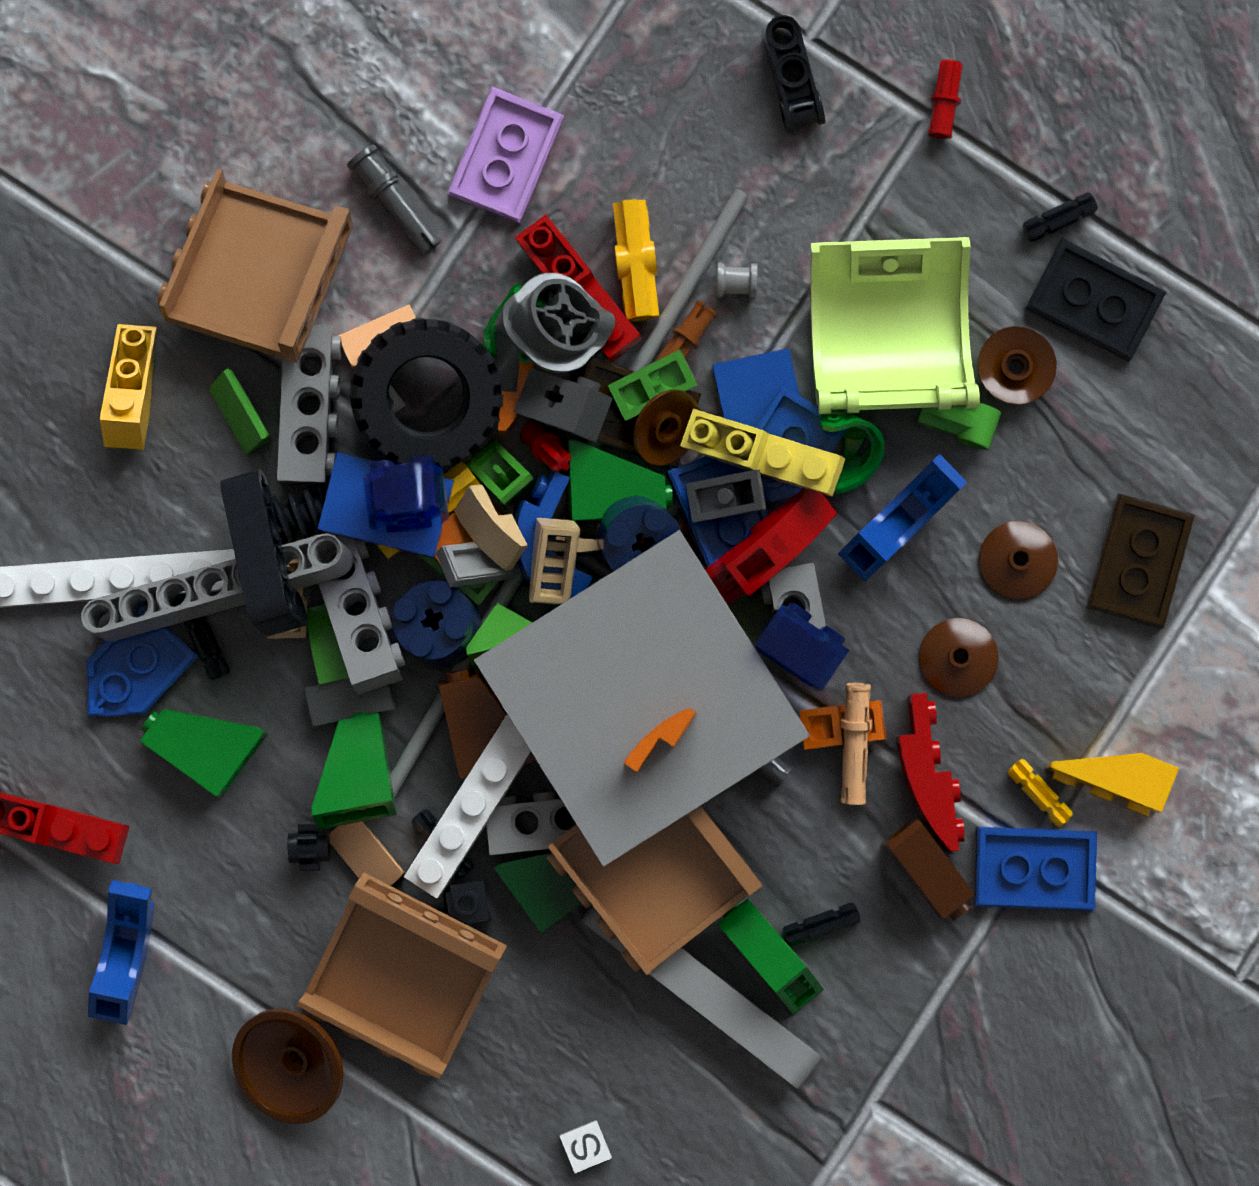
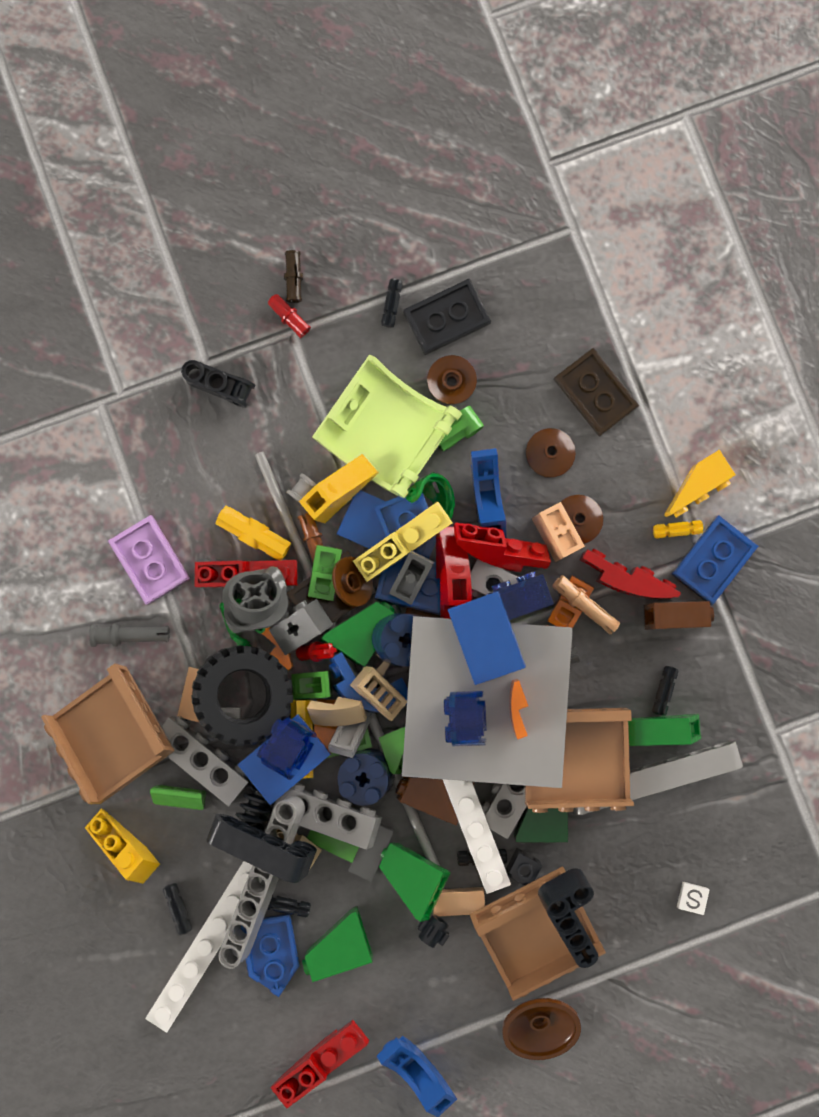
camera: 50 degrees left, 0 degrees up
(103, 512) = (177, 909): none -> black axle
(441, 1001) = (560, 900): none -> black beam
(602, 681) = (466, 718): none -> clear blue brick
(719, 637) = (486, 638): none -> blue tile
(769, 324) = (337, 489): none -> yellow slope
(839, 573) = (493, 548): none -> red slope
(922, 641) = (558, 532): none -> light nougat hinge
(1000, 67) = (293, 276): none -> dark brown pin

